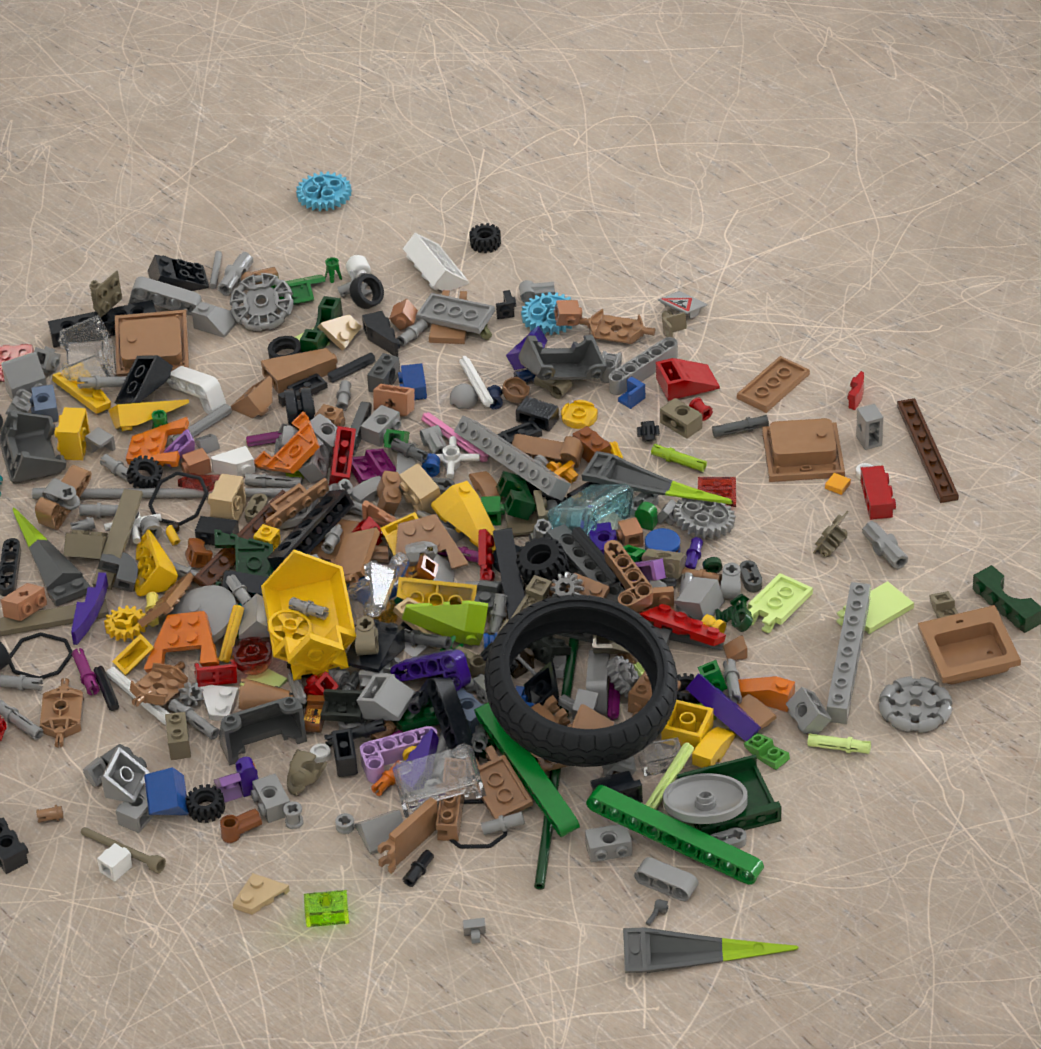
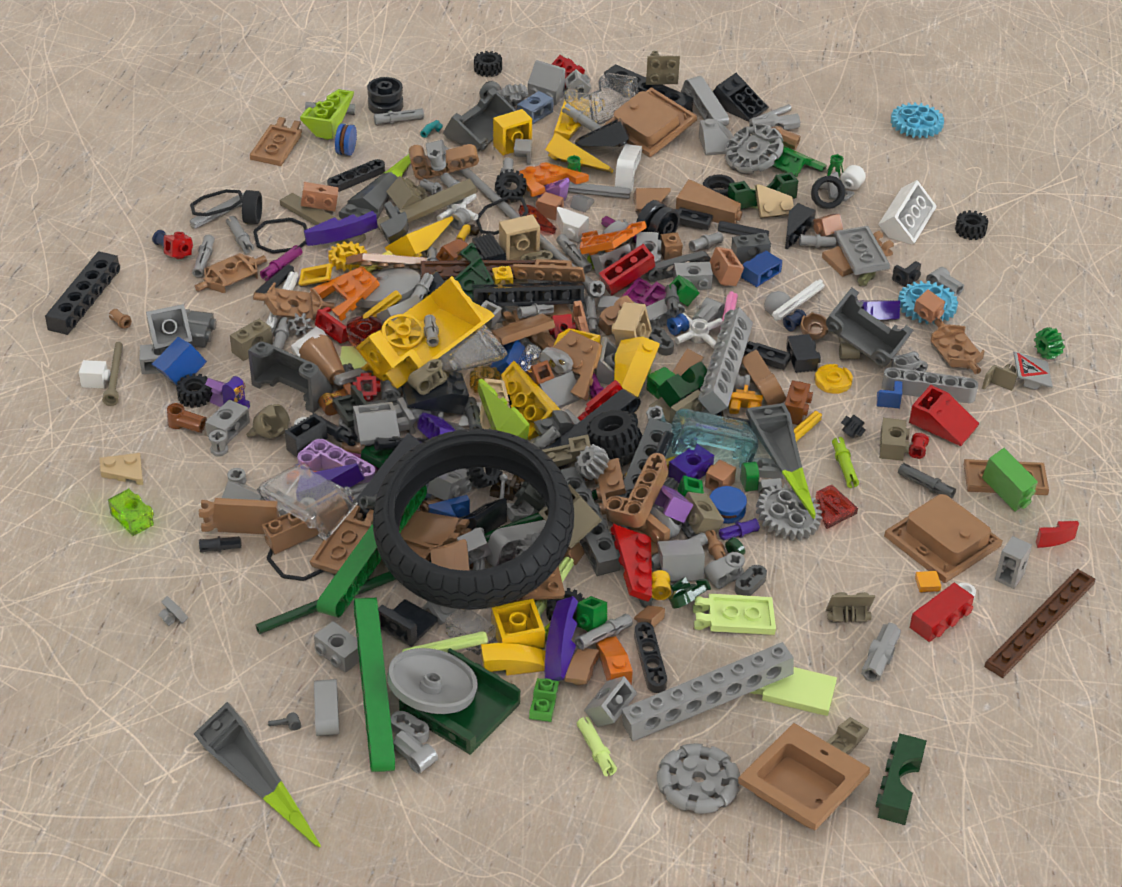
camera: 50 degrees right, 0 degrees up
(502, 823) = (307, 568): light grey pin -> none
(666, 276) = (1049, 343): none -> green gear
(749, 663) = (648, 657): none -> black beam
(764, 846) = (417, 755): none -> light grey piece
(793, 379) = (1010, 480): none -> bright green brick

